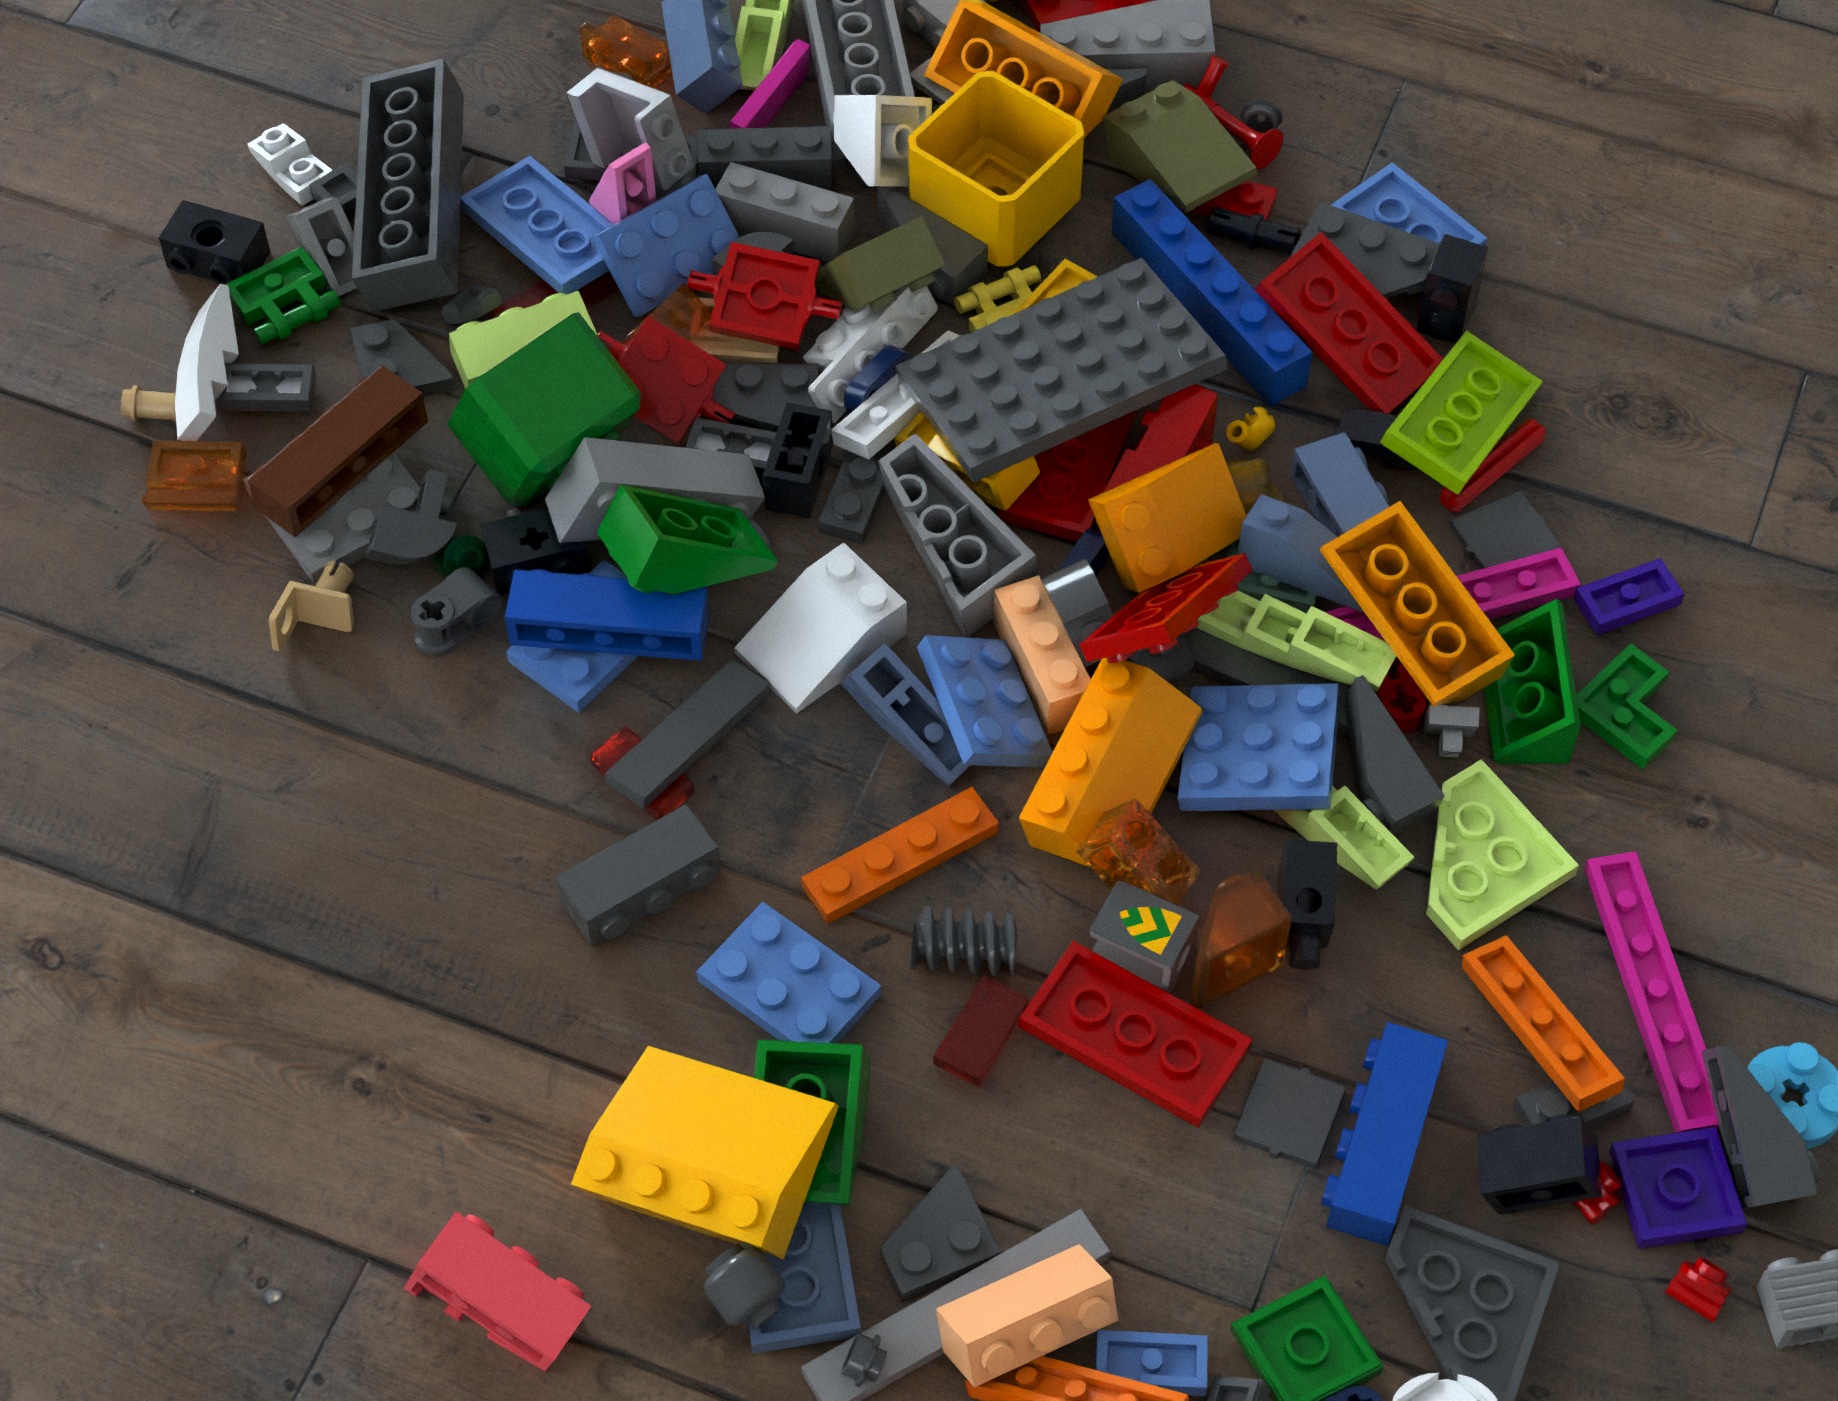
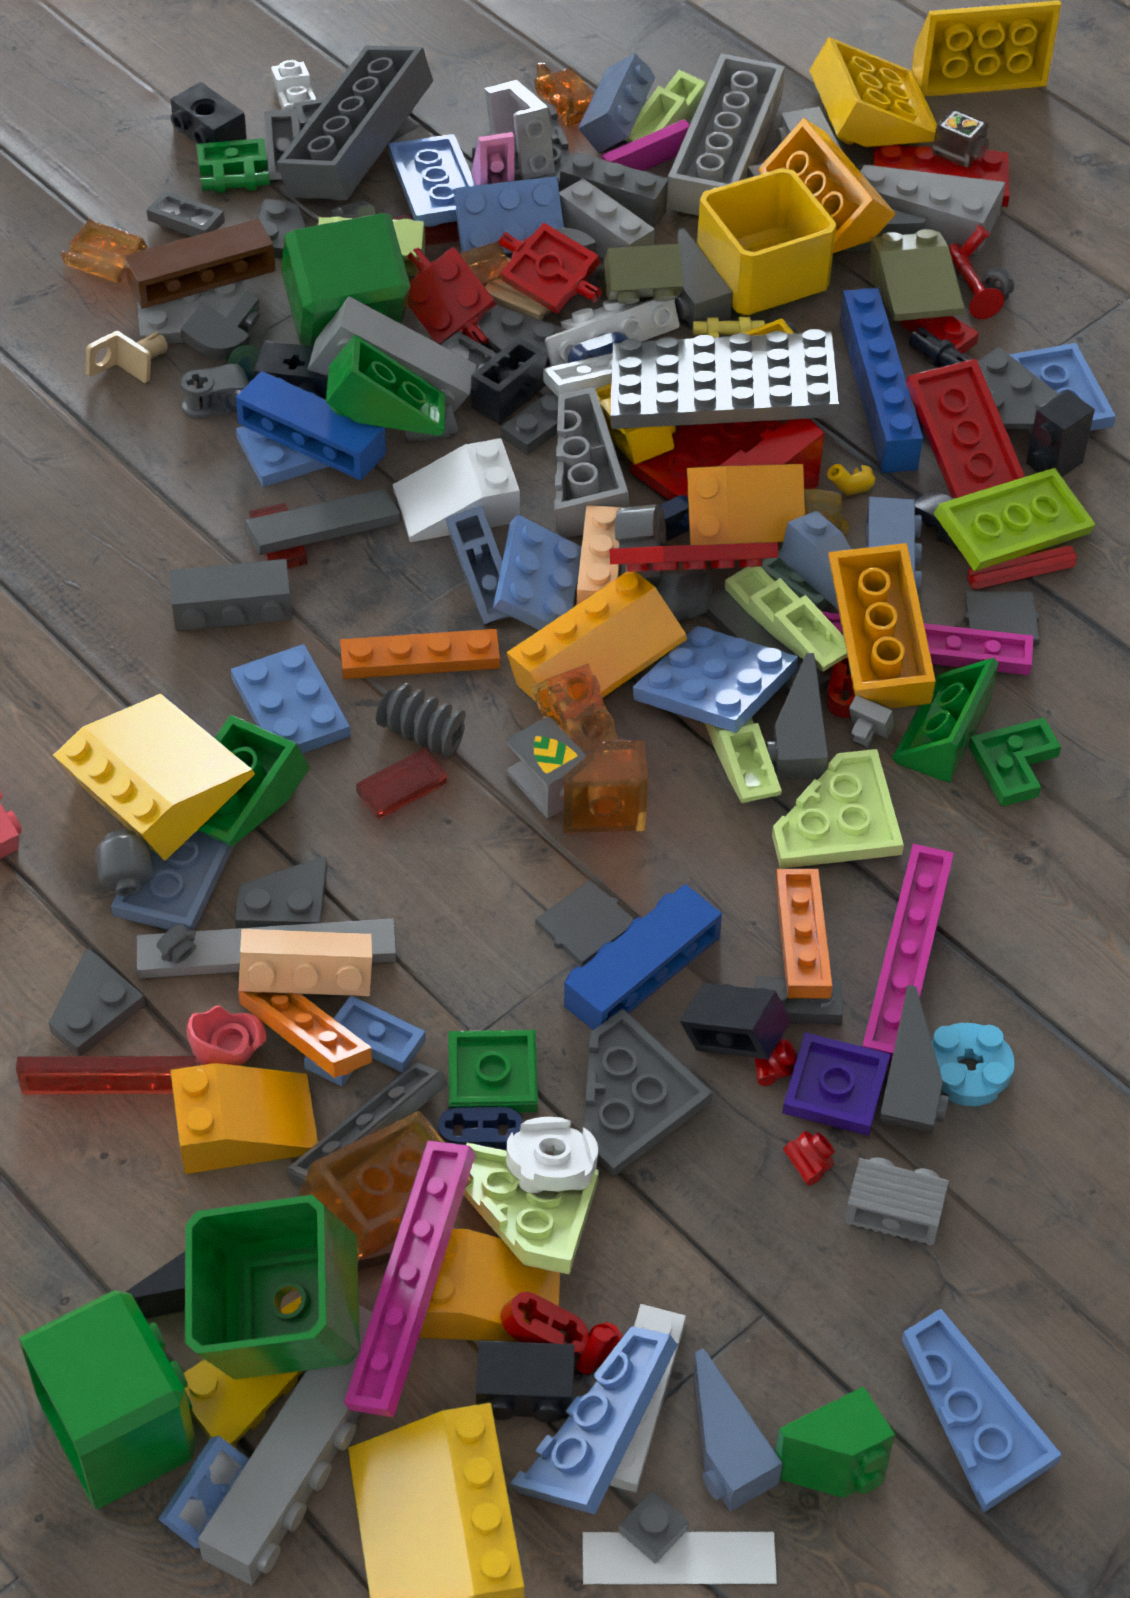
camera: 25 degrees right, 5 degrees down
(147, 404) = (97, 197): tan pin -> none
(202, 365) = (161, 176): white slope -> none
(876, 132) = (683, 186): white slope -> none
(1135, 1034) = (506, 826): red plate -> none
(1308, 892) = (681, 784): black torso -> none
(1628, 596) = (1066, 688): dark purple plate -> none

